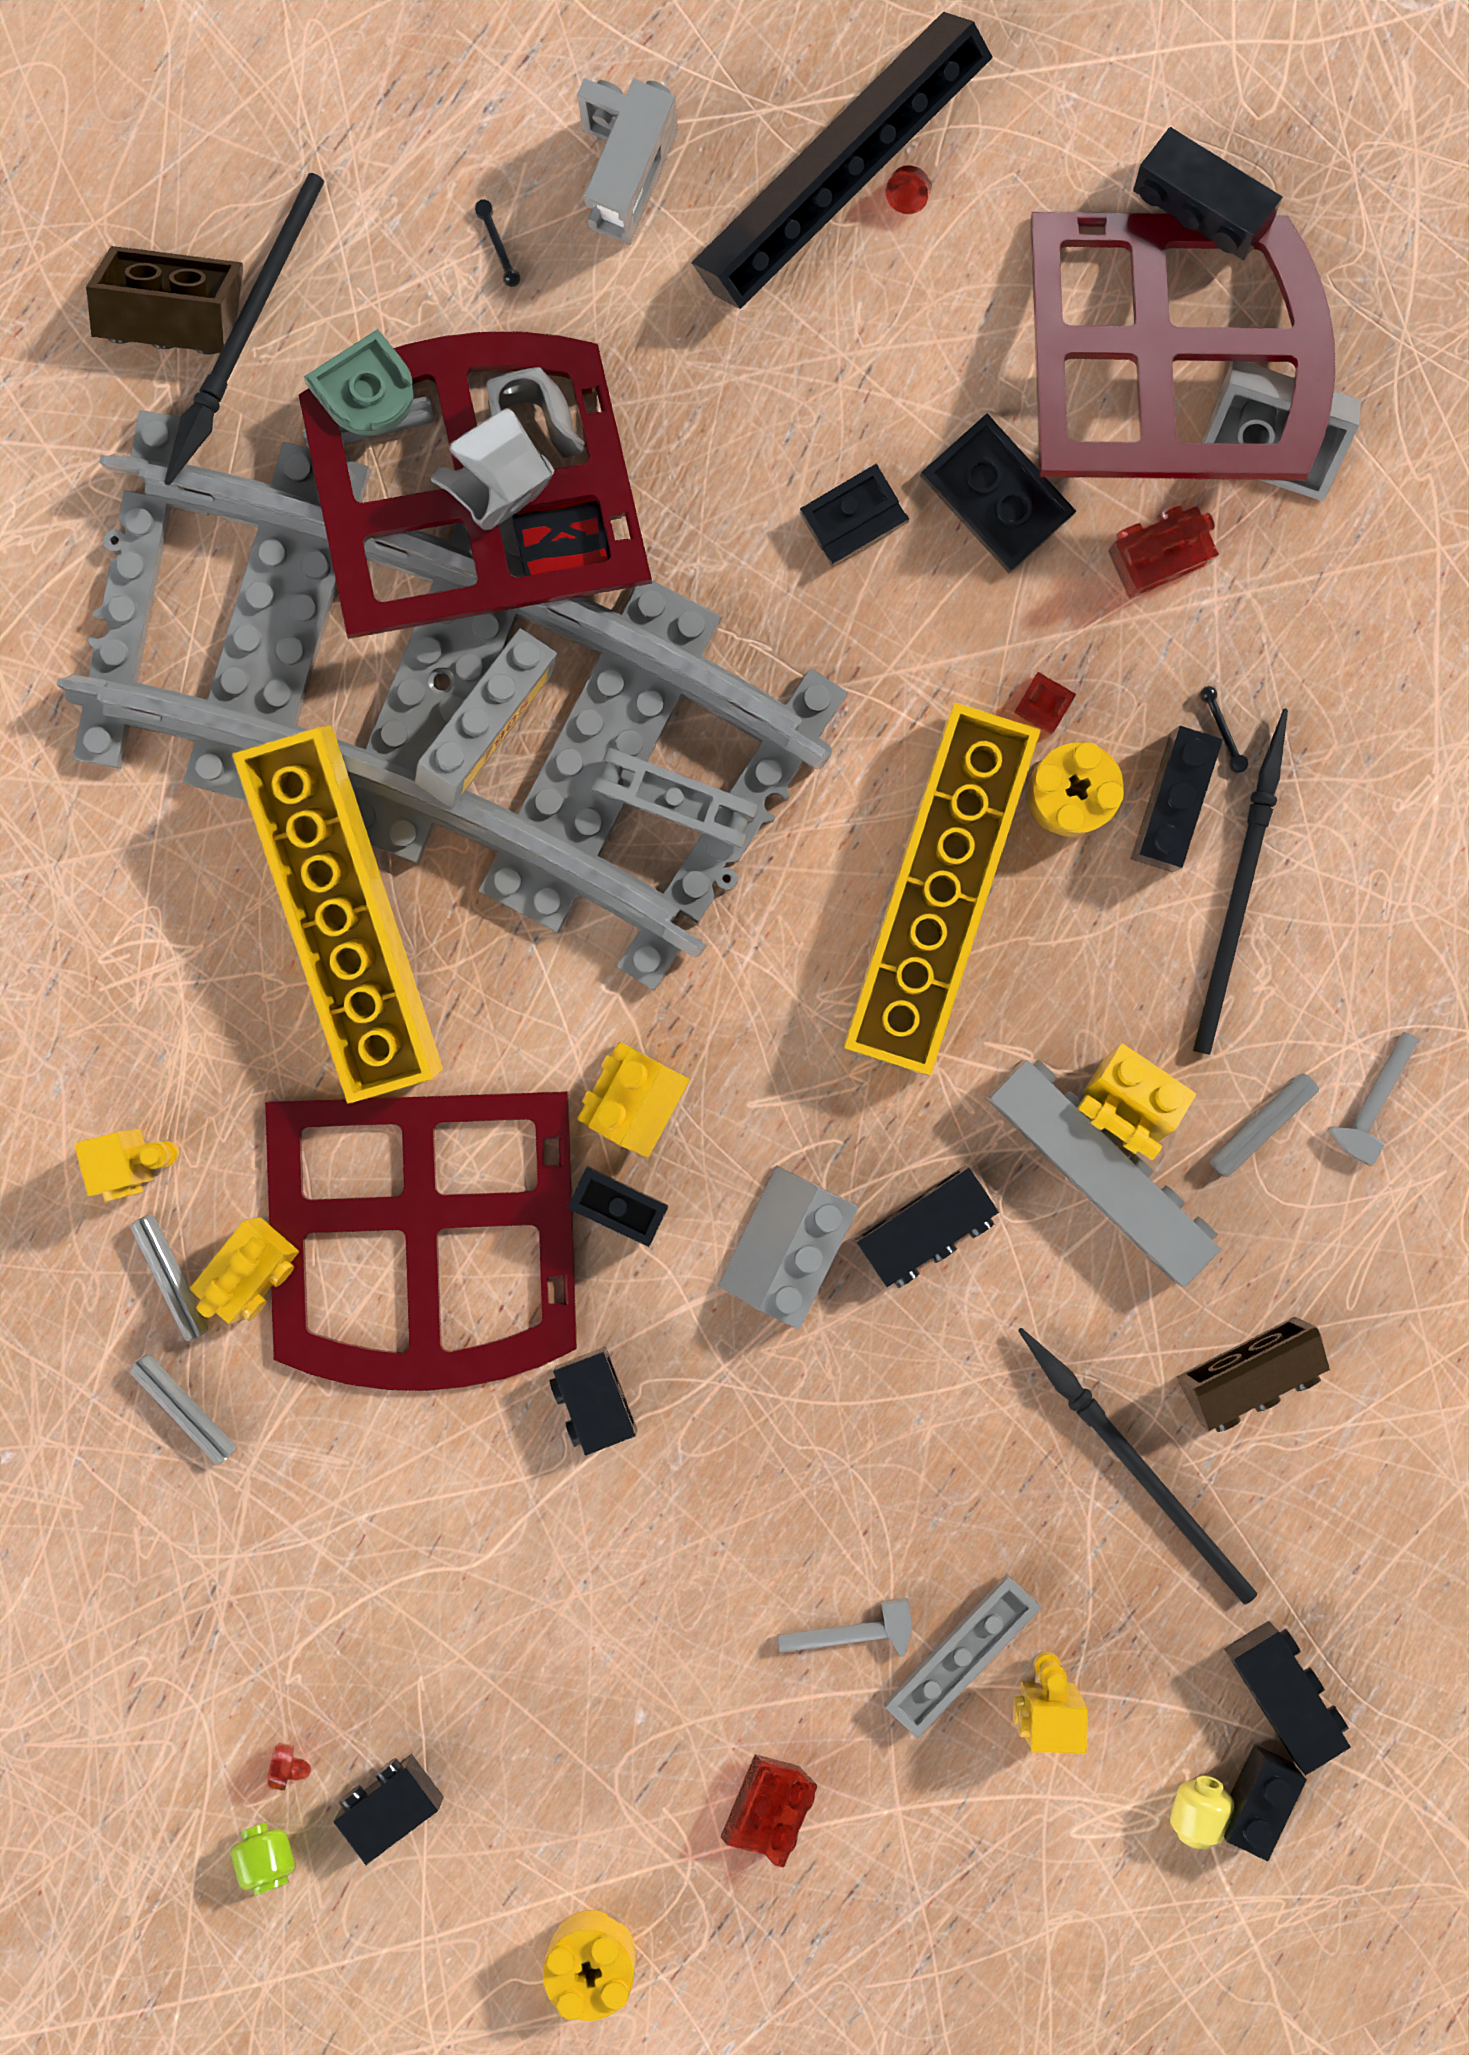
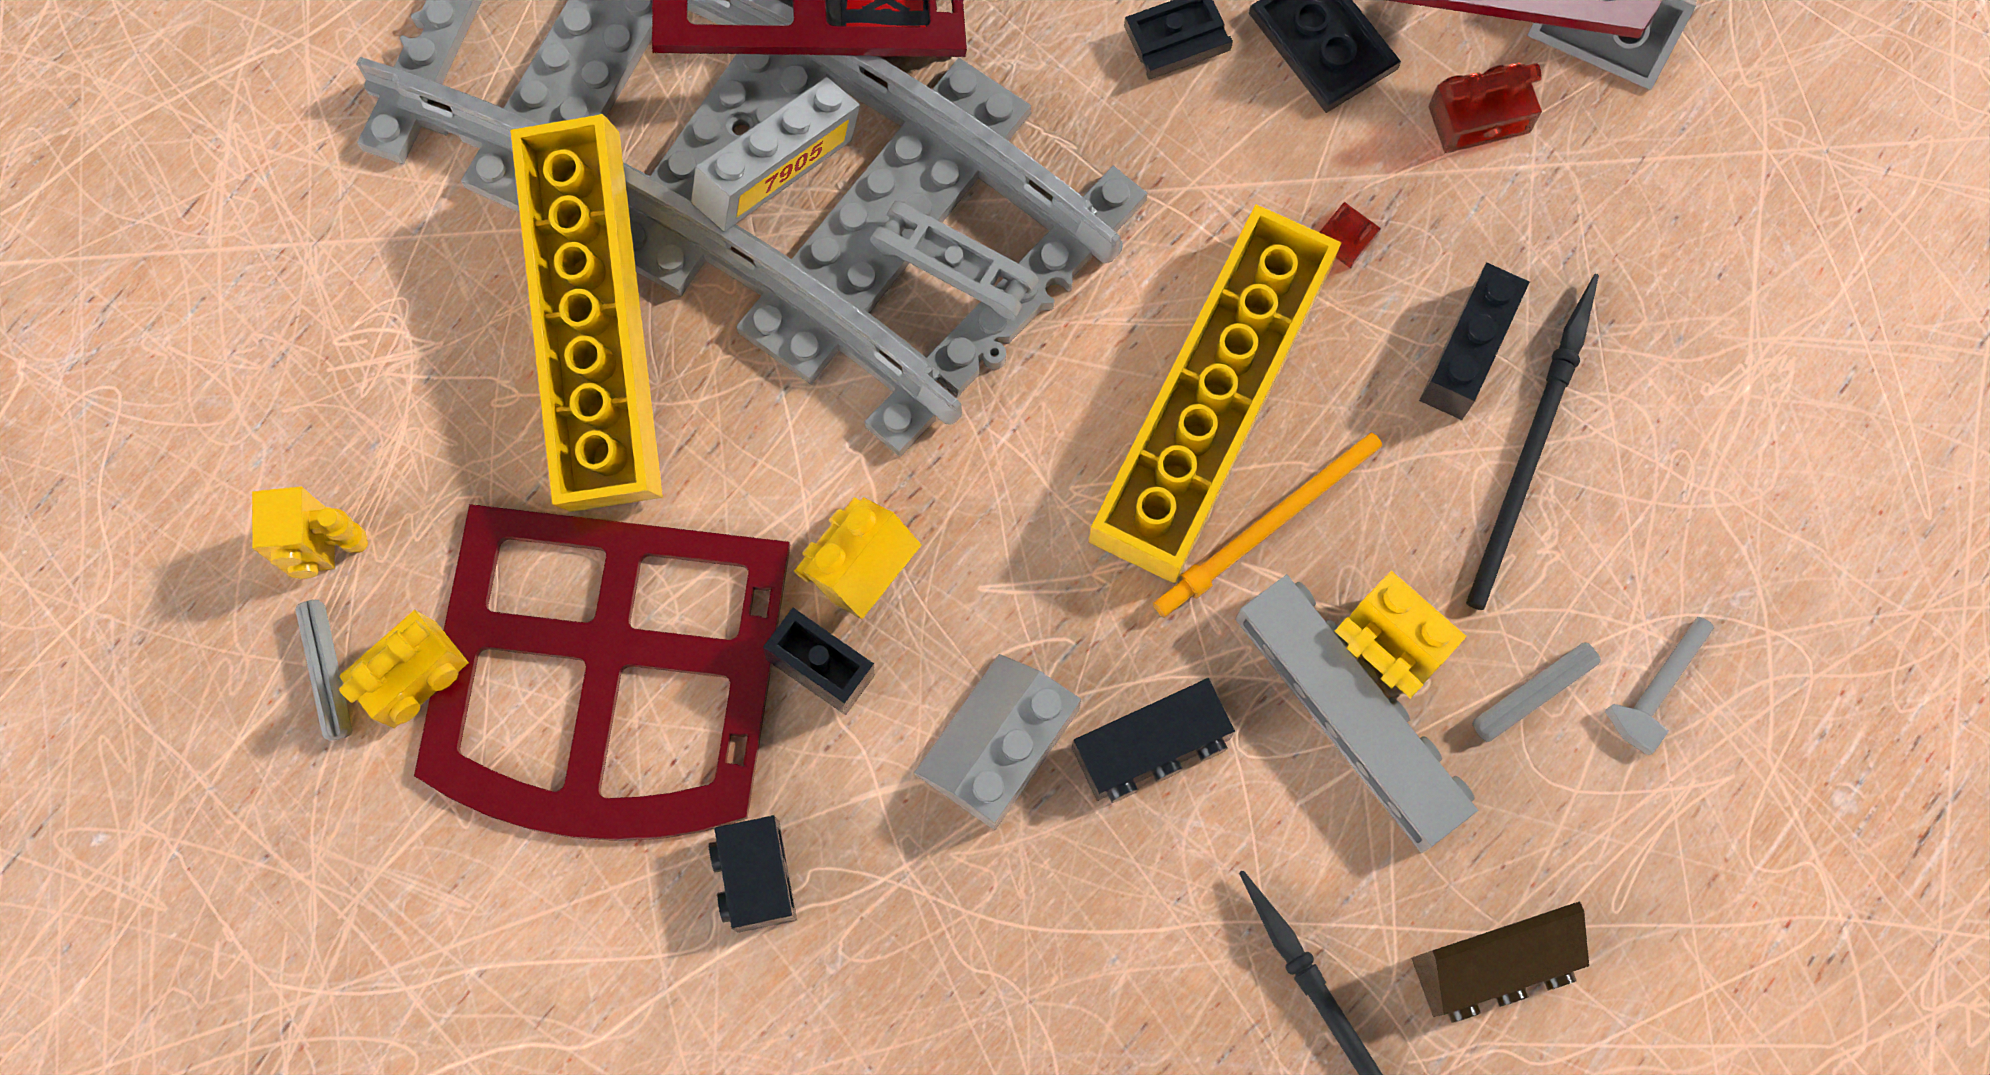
camera: 10 degrees right, 15 degrees down
(182, 1409) = (302, 814): light grey axle -> none
(947, 1068) = (1199, 579): none -> light orange bar
(1082, 765) = (1369, 315): yellow brick -> none
(1237, 763) = (1542, 321): black hinge -> none

